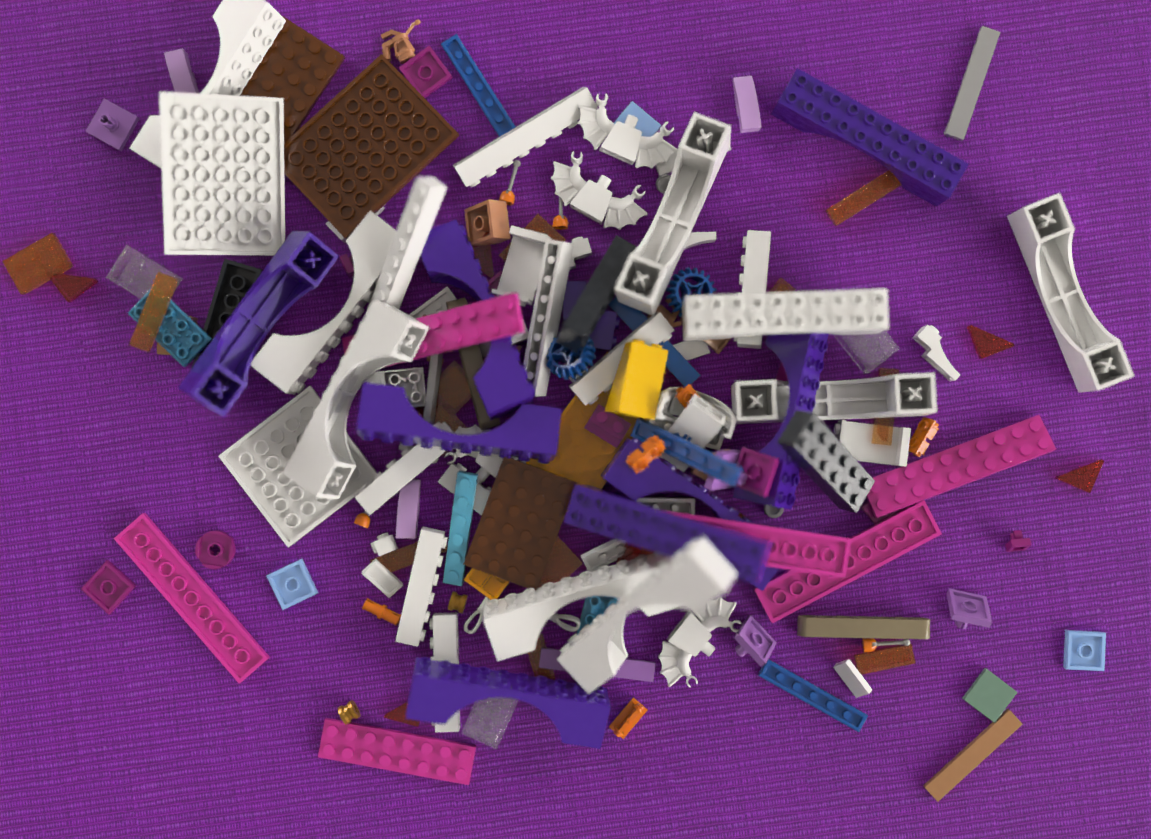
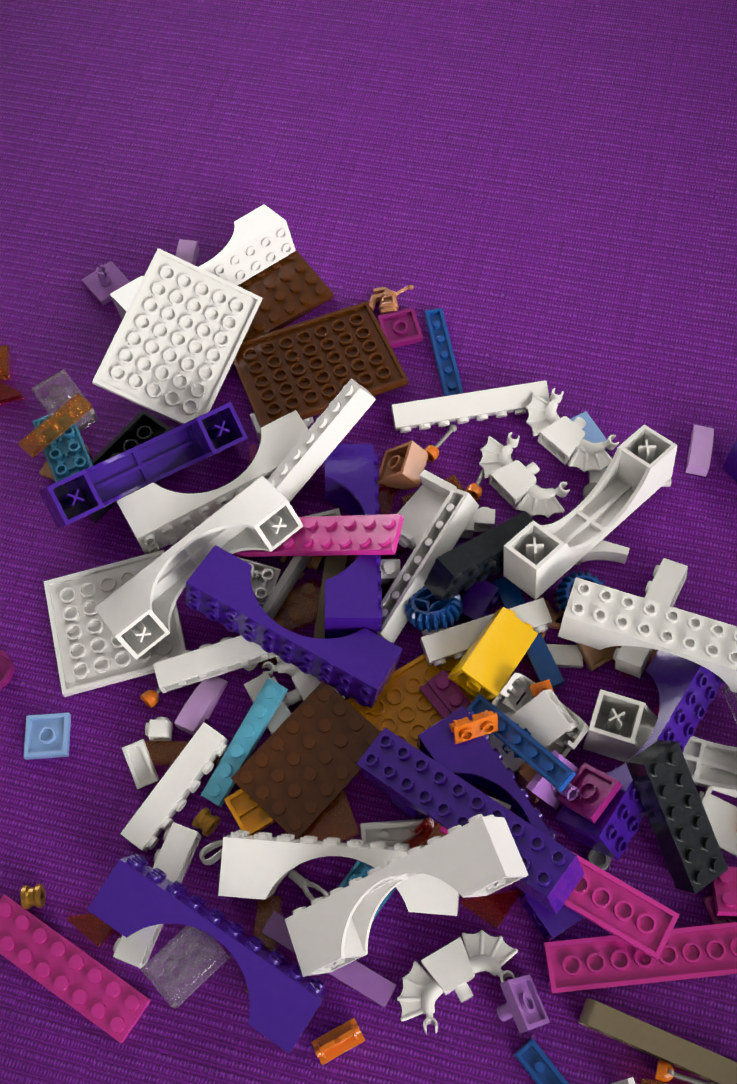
camera: 30 degrees right, 25 degrees down
(381, 612) = (121, 799): orange pin -> none

